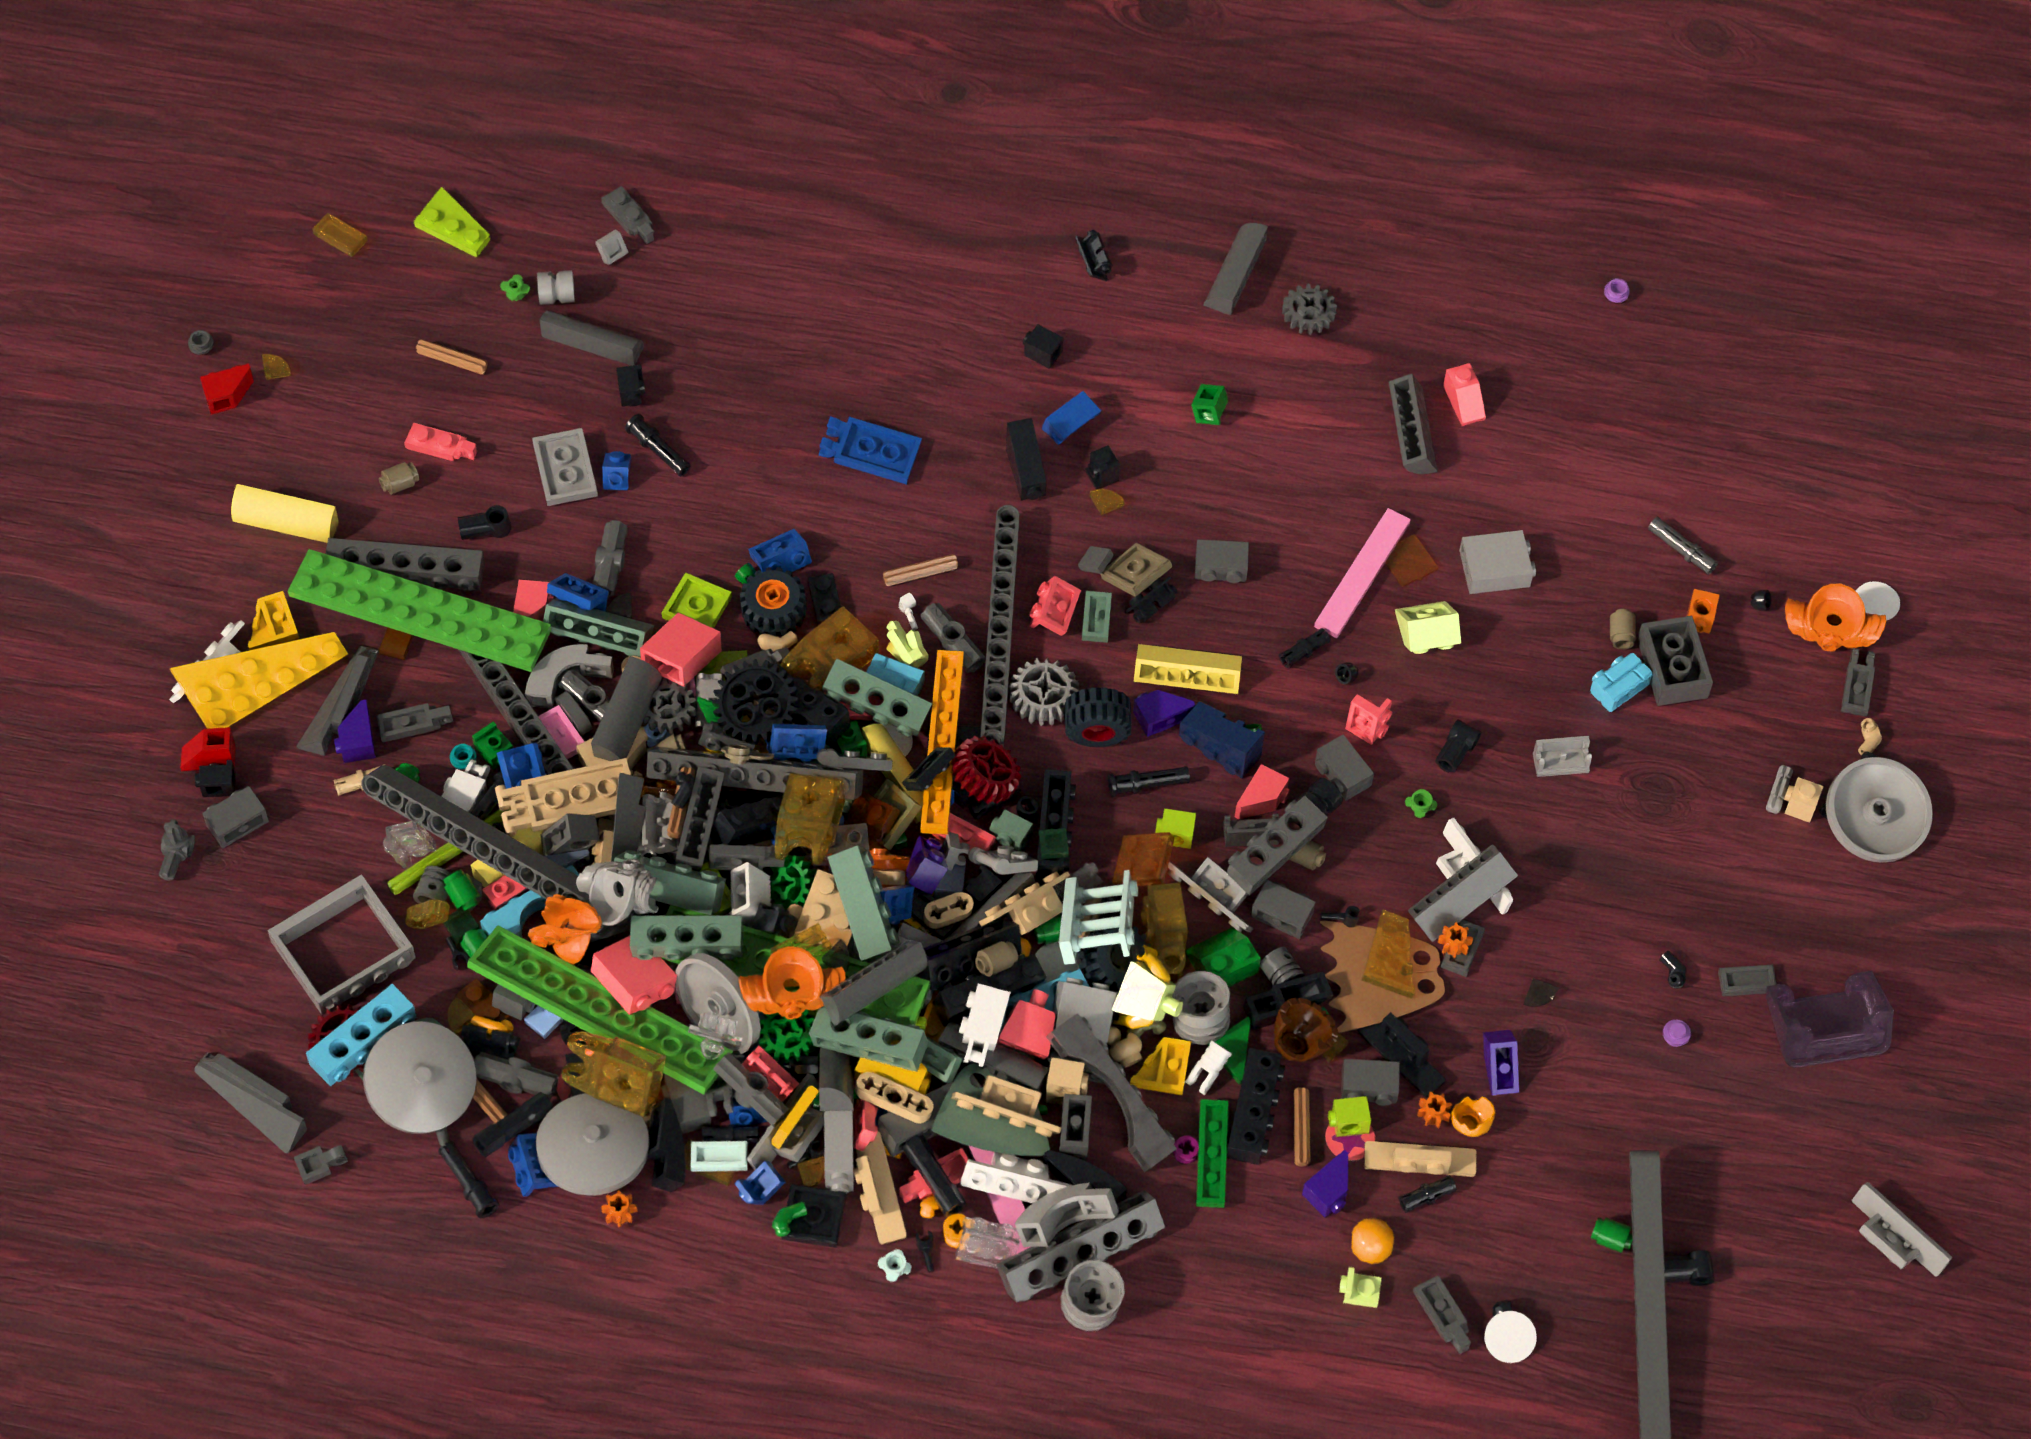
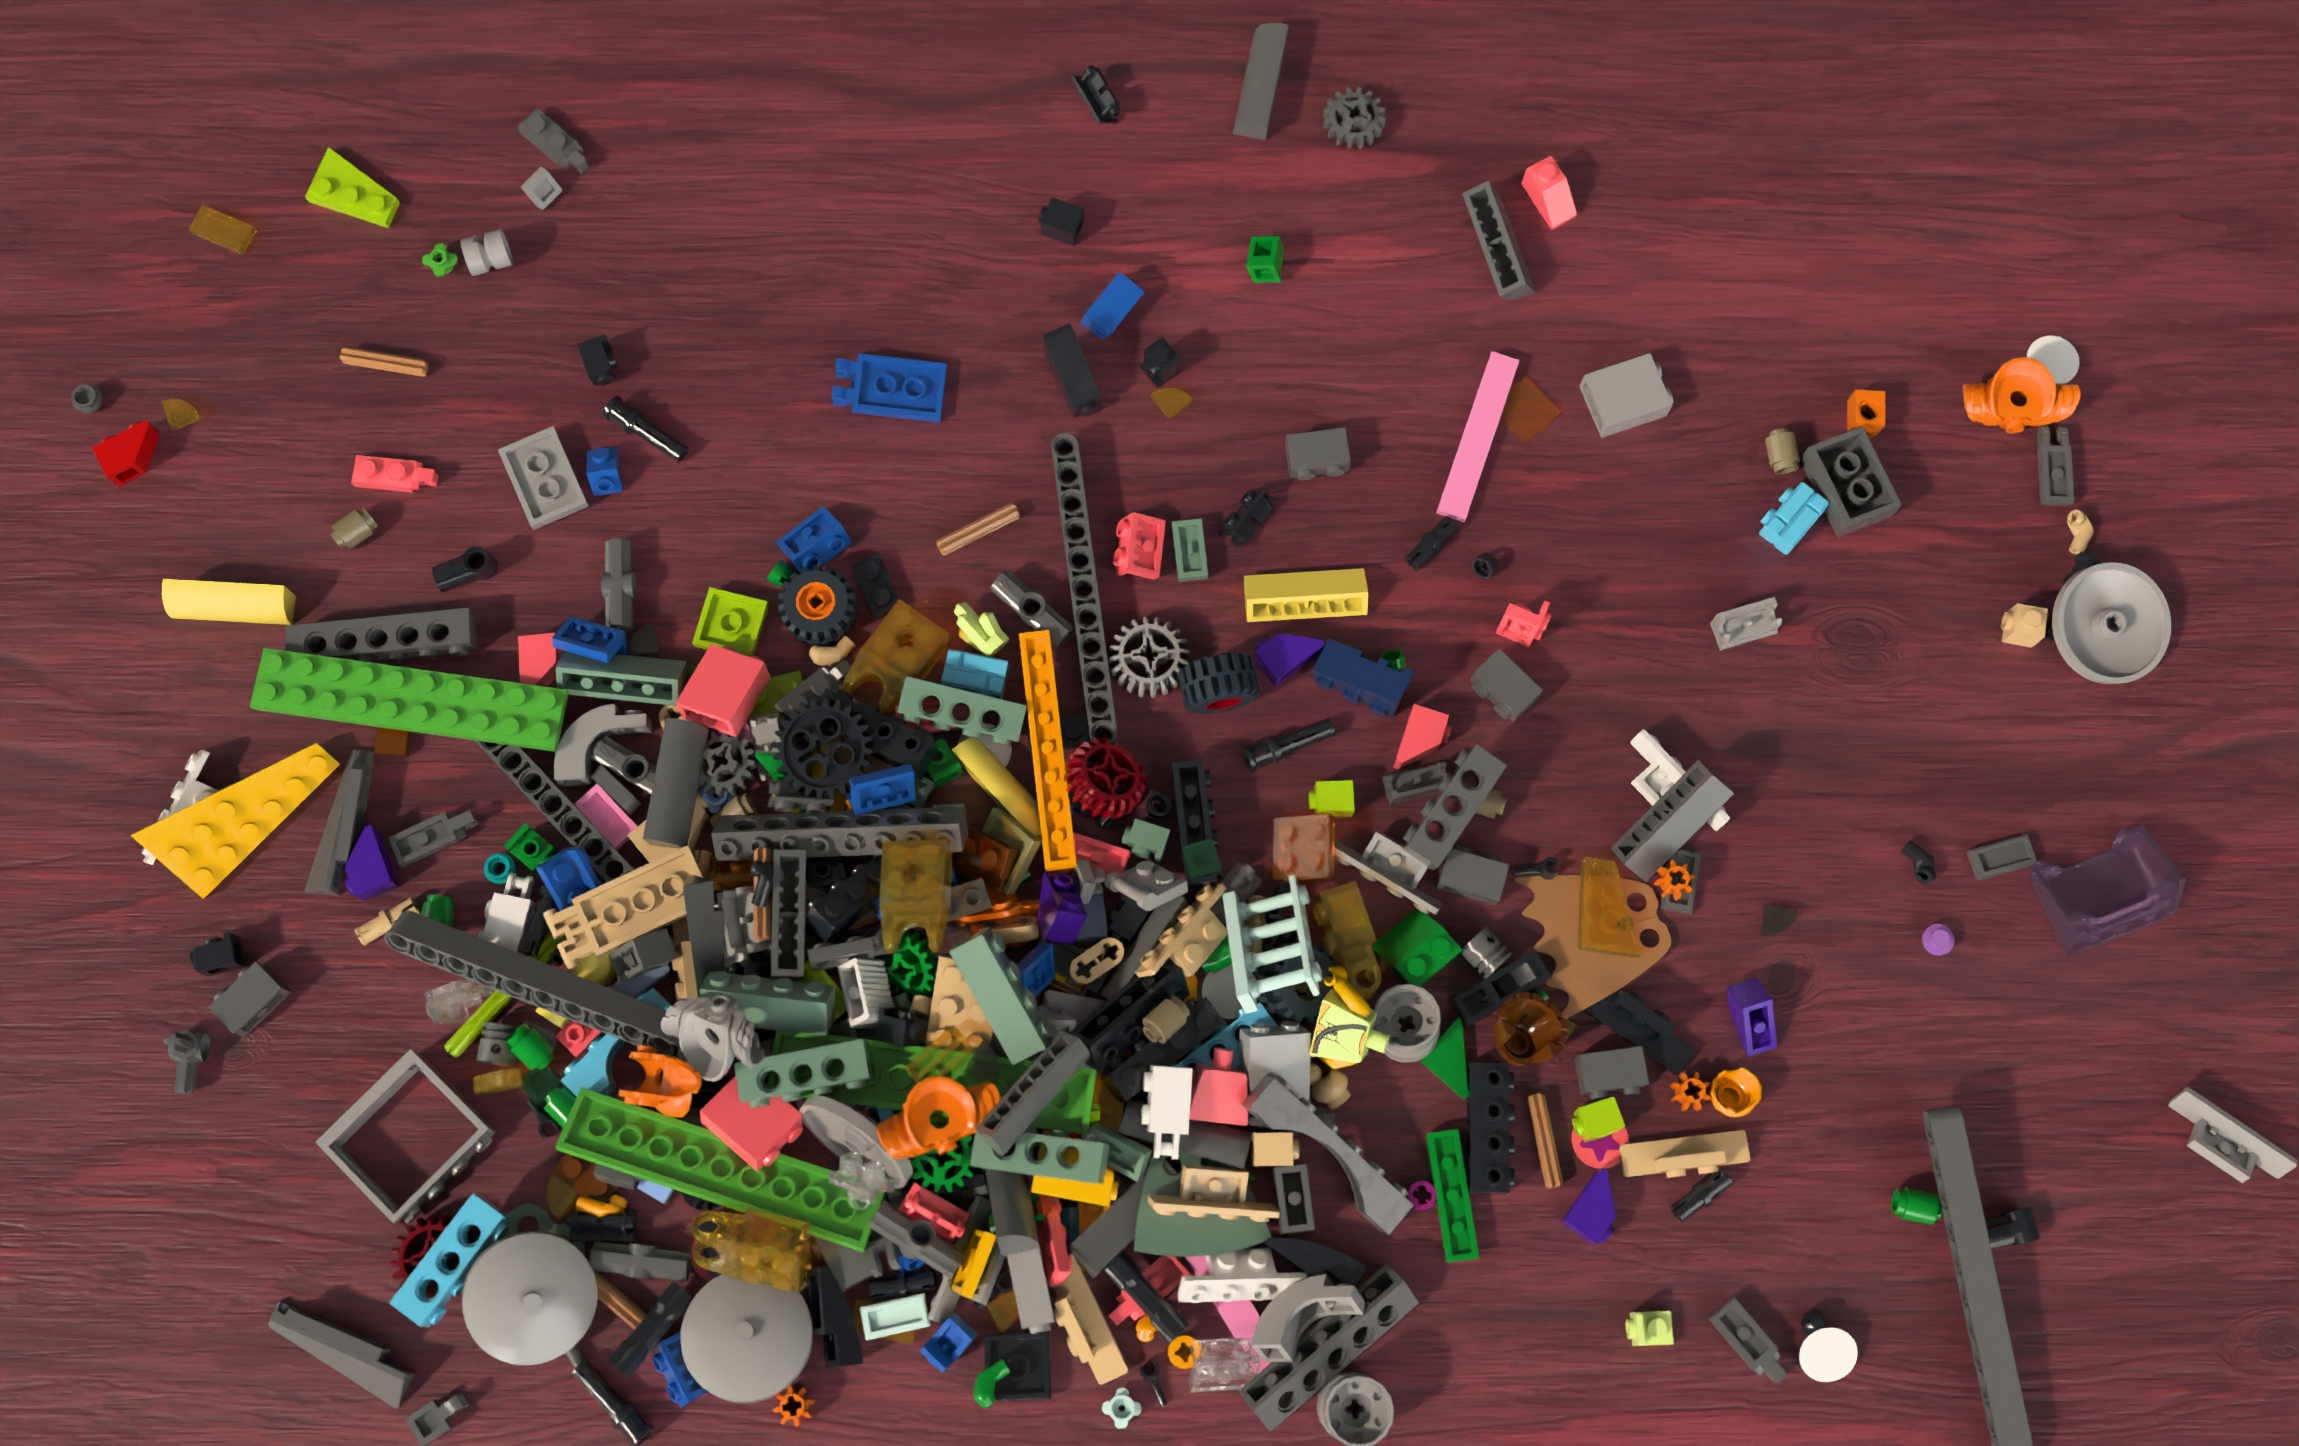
camera: 10 degrees left, 15 degrees up
(208, 747) = (202, 921): red slope -> none
(272, 622) = (243, 742): yellow wing -> none
(590, 338) = (540, 307): dark grey brick -> none
(740, 753) = (819, 823): dark tan plate -> none
(852, 759) = (952, 799): dark grey hinge -> none
(897, 1108) = (1105, 1229): tan beam -> none
(905, 605) = (969, 576): white hand -> none
(933, 764) = (1040, 795): black plate -> none
(1095, 559) = (1174, 479): dark grey tile -> none
(1136, 569) = (1223, 483): dark tan plate -> none
(1165, 1068) = (1378, 1099): yellow wing -> none
(1211, 1061) = (1430, 1087): white hinge -> none
(1324, 795) = (1487, 731): black wheel -> none
(1372, 1240) = (1651, 1265): light orange hair -> none
(1424, 797) = (1599, 702): bright green plate -> none
(1429, 626) = (1566, 490): yellowish green slope -> none
(1459, 741) = (1629, 626): black piece -> none
(1616, 290) = (1693, 30): medium lavender plate -> none
(1690, 551) = (1828, 334): dark grey pin -> none
(1761, 600) = (1929, 385): black hinge -> none
(1779, 789) = (1992, 615): light grey axle -> none

